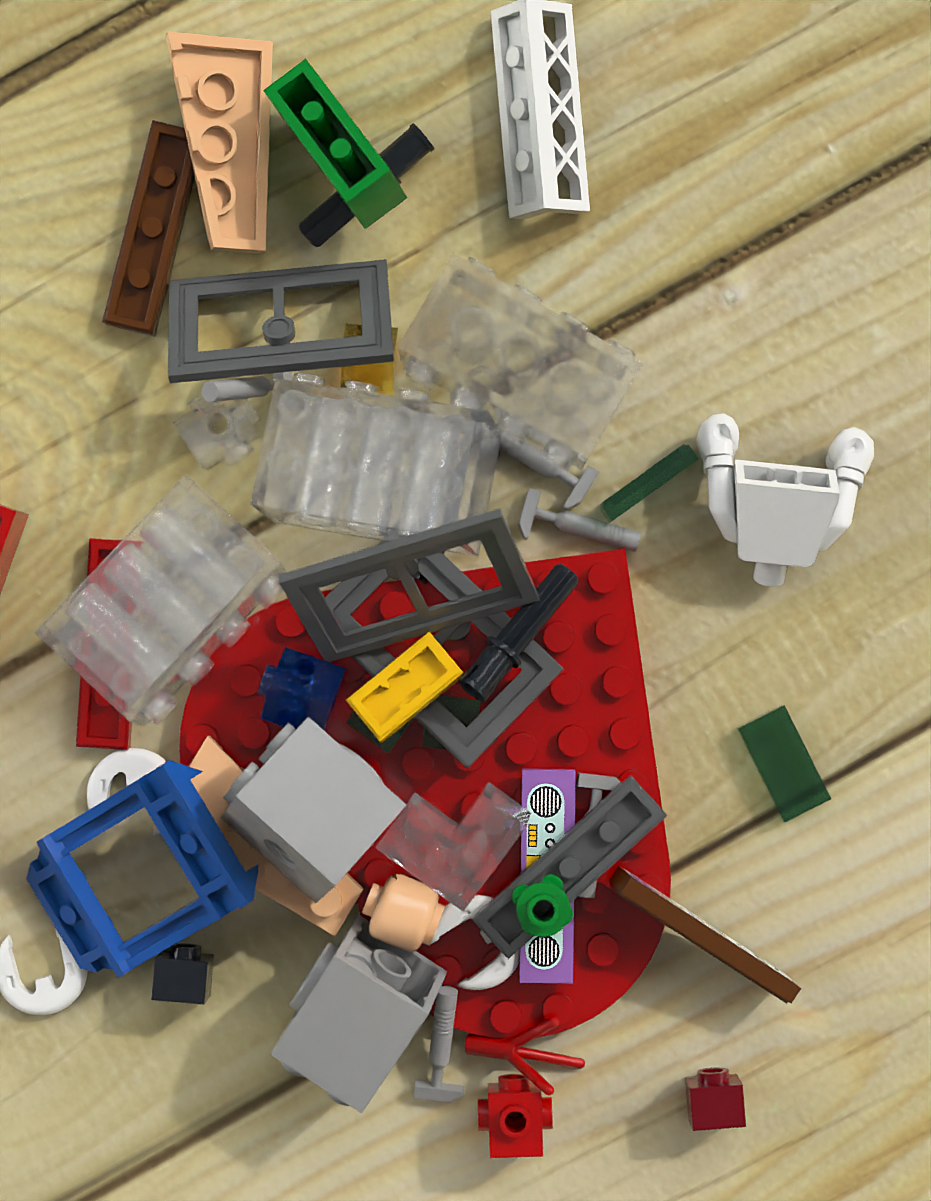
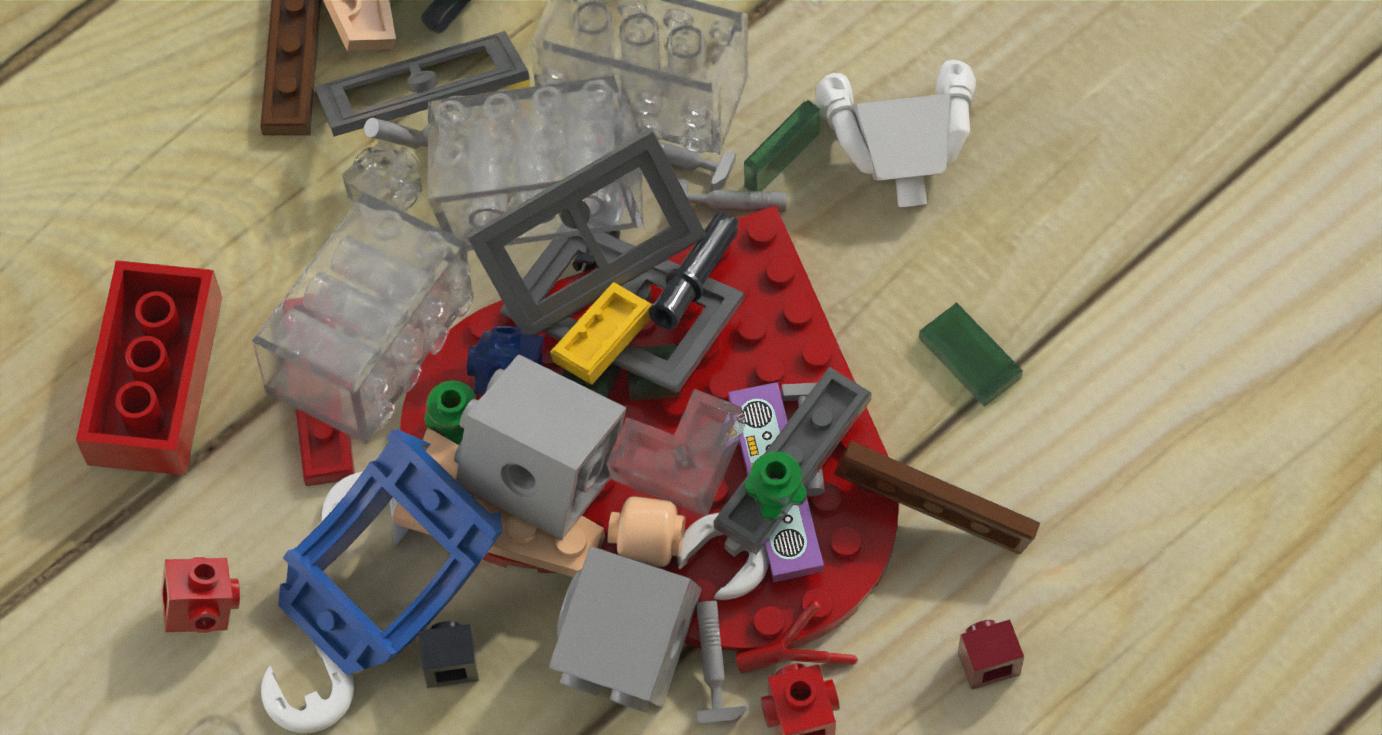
camera: 10 degrees left, 25 degrees down
(254, 726) = (440, 411): none -> green brick

